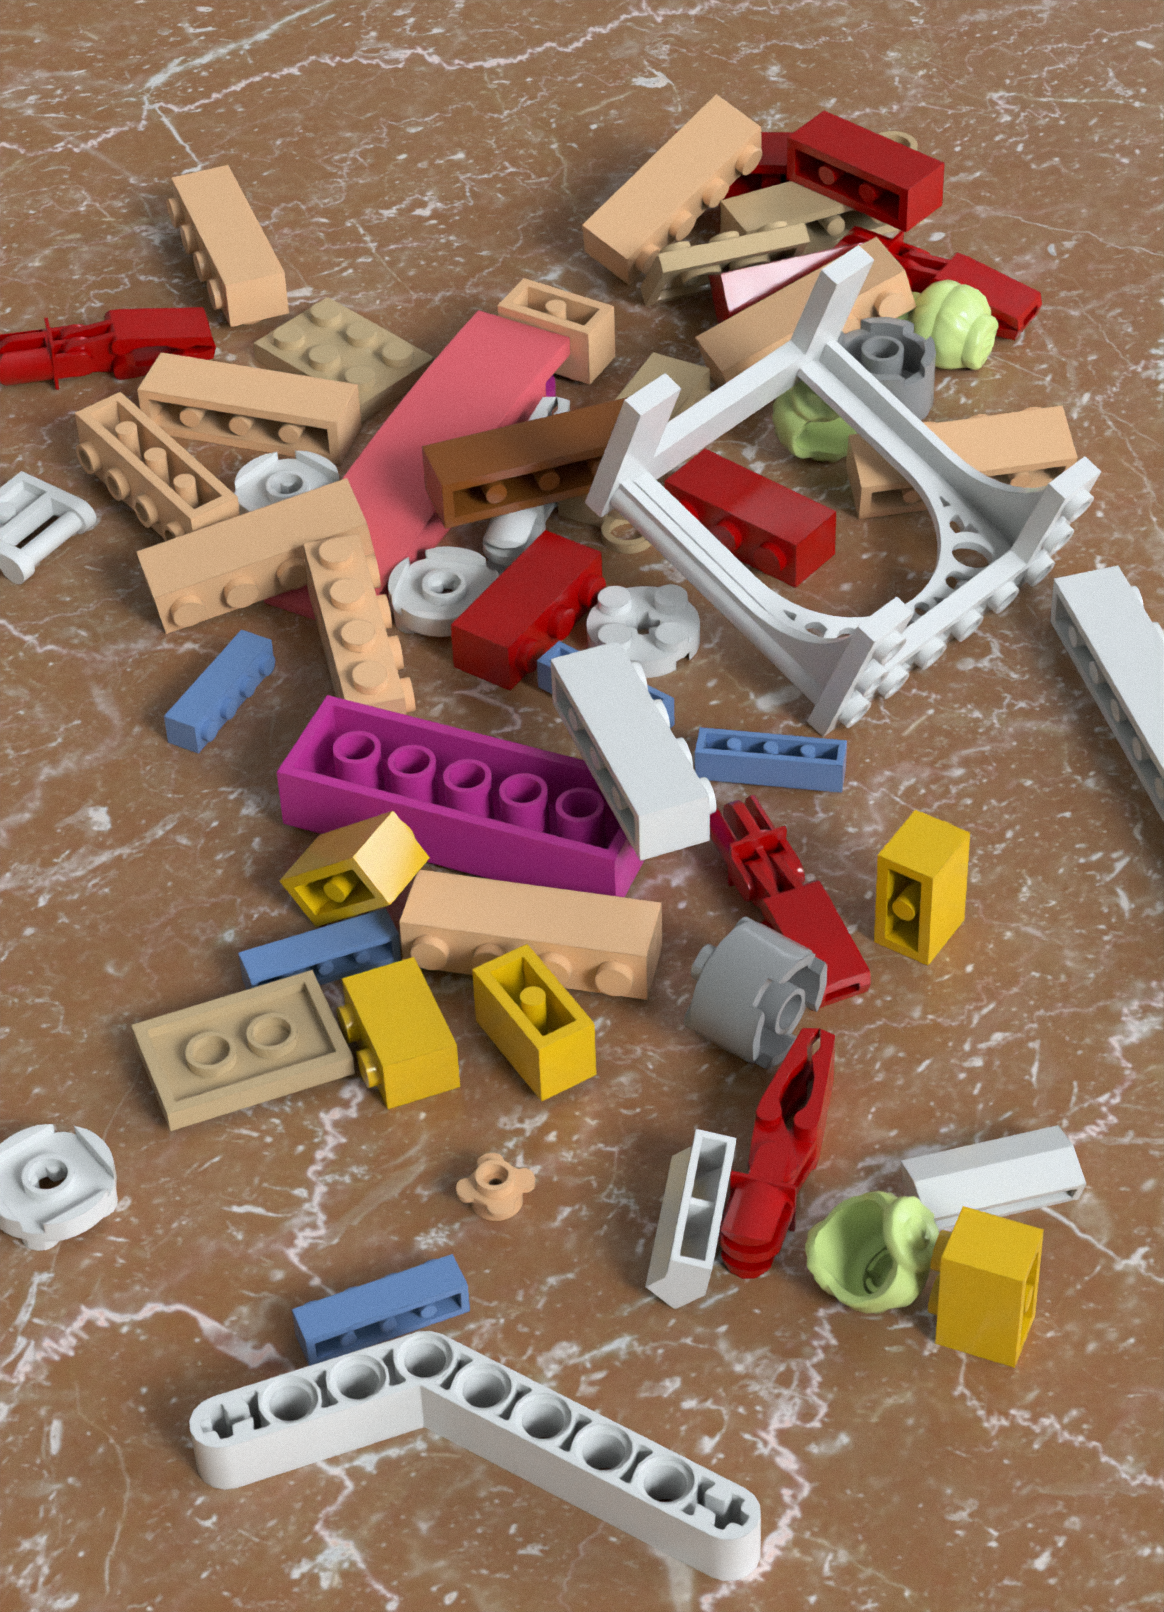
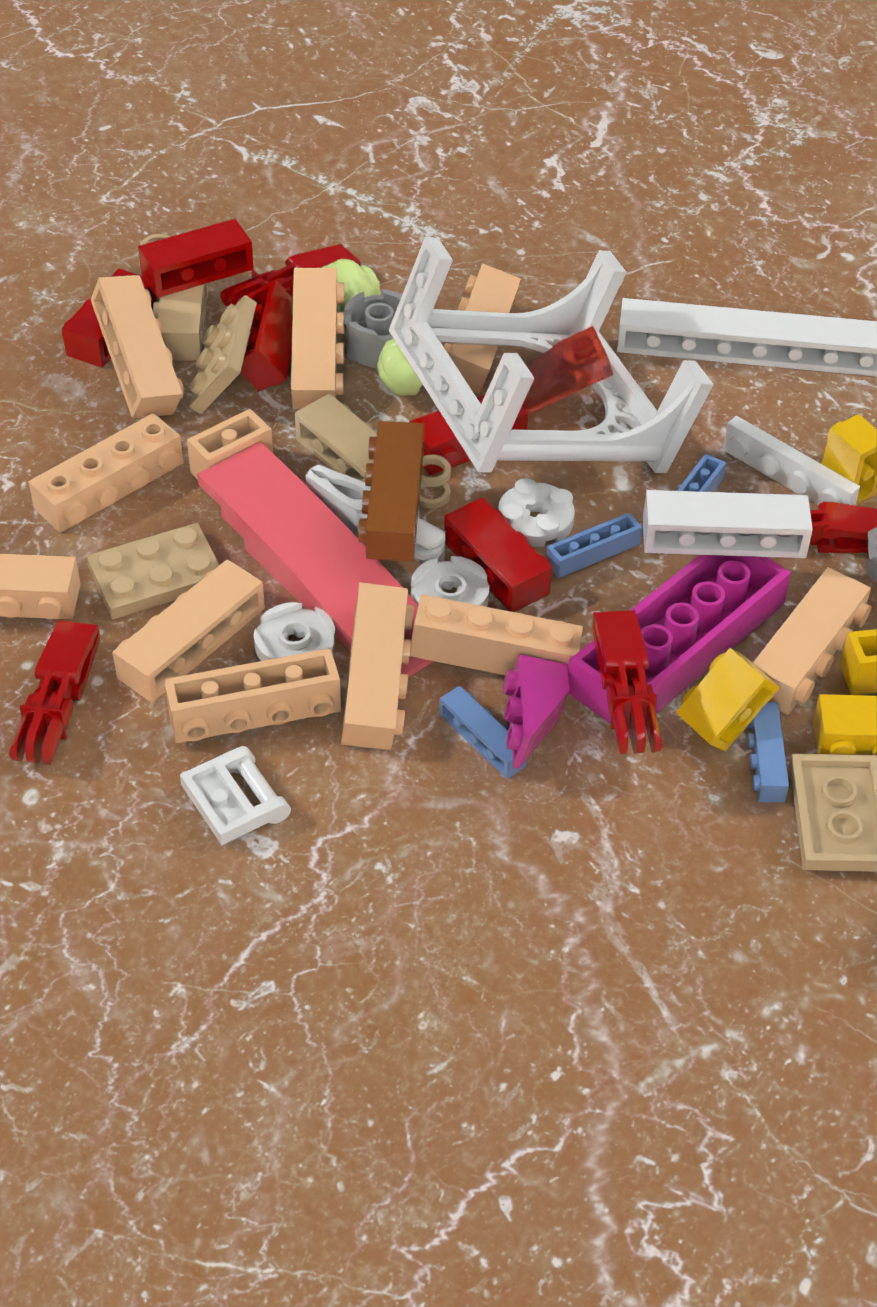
camera: 70 degrees left, 5 degrees up
(246, 704) = (534, 703): none -> dark pink slope
(319, 732) = (622, 669): none -> red arm
(462, 256) = (106, 472): none -> light nougat brick
(904, 549) = (567, 369): none -> clear red slope
(911, 790) = (787, 464): none -> white plate

